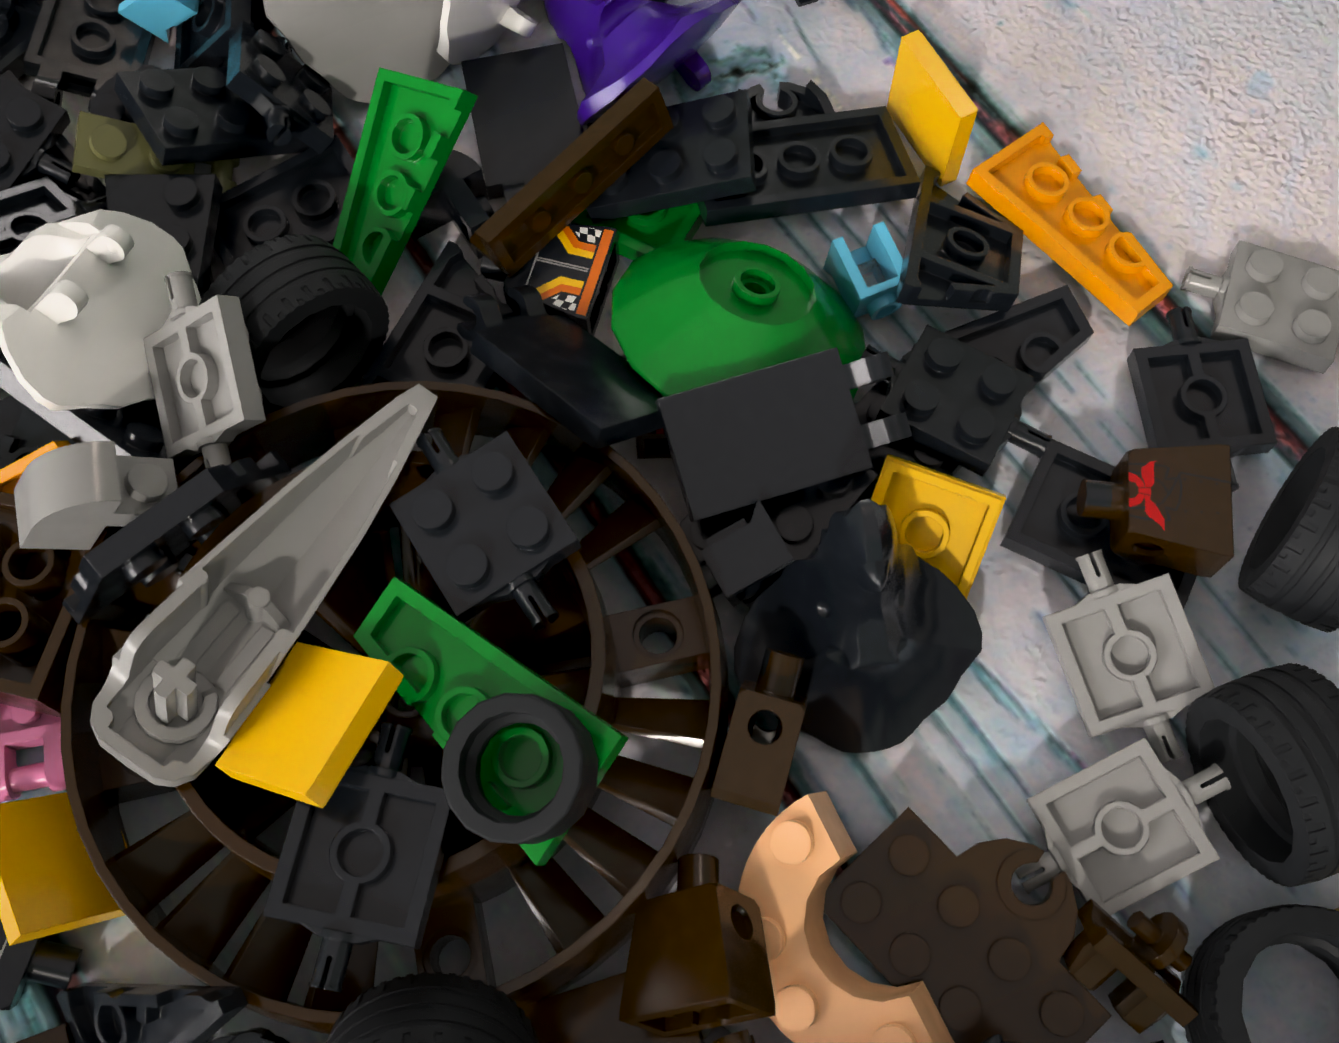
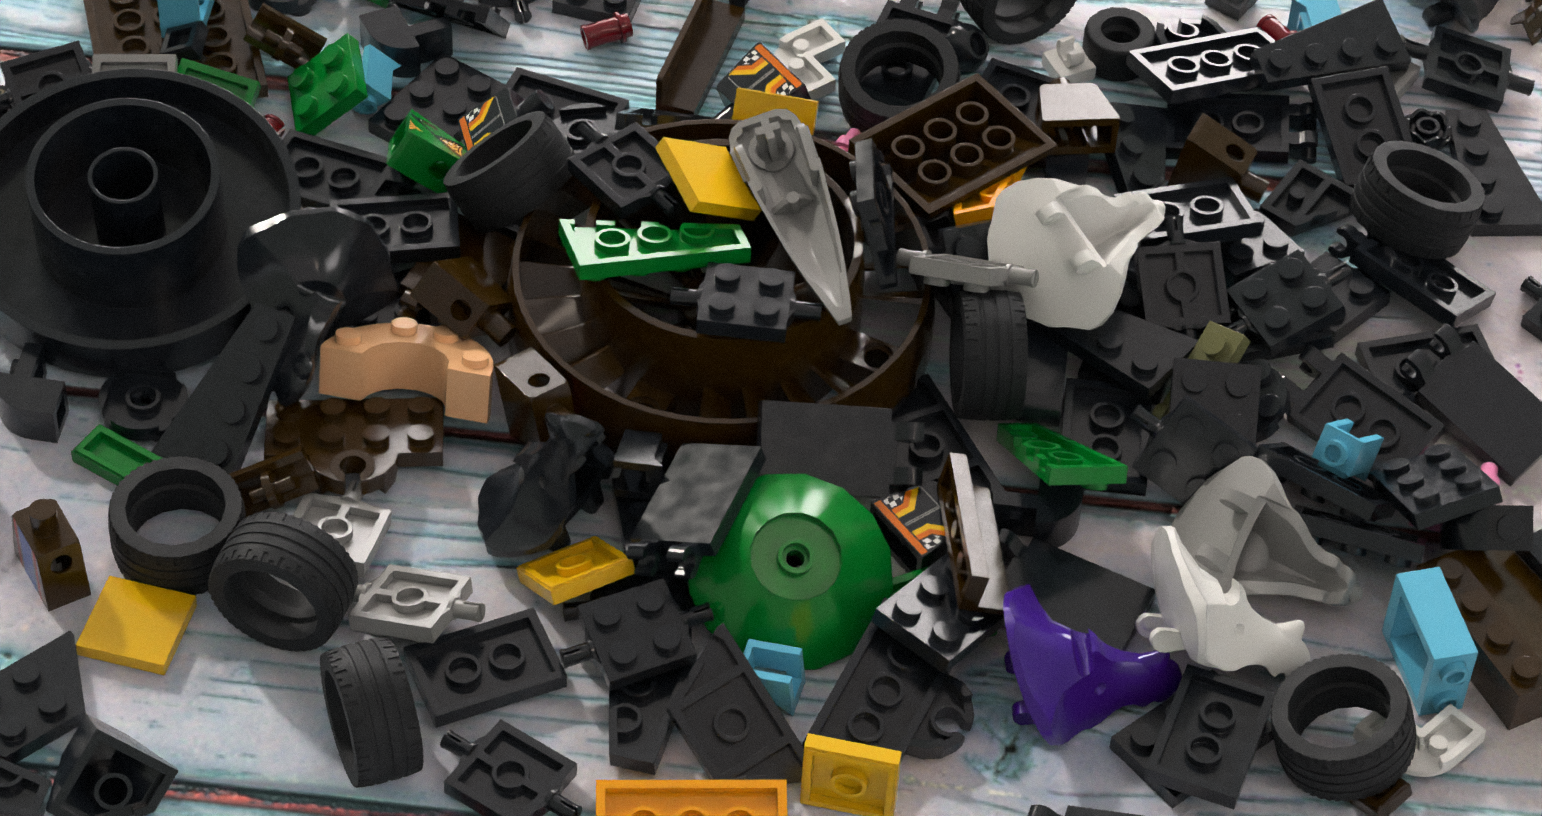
camera: 125 degrees right, 20 degrees down
(81, 489) = (932, 190): light grey brick -> none
(463, 764) = (602, 238): black tyre -> none
(1167, 507) = (465, 669): dark brown torso -> none

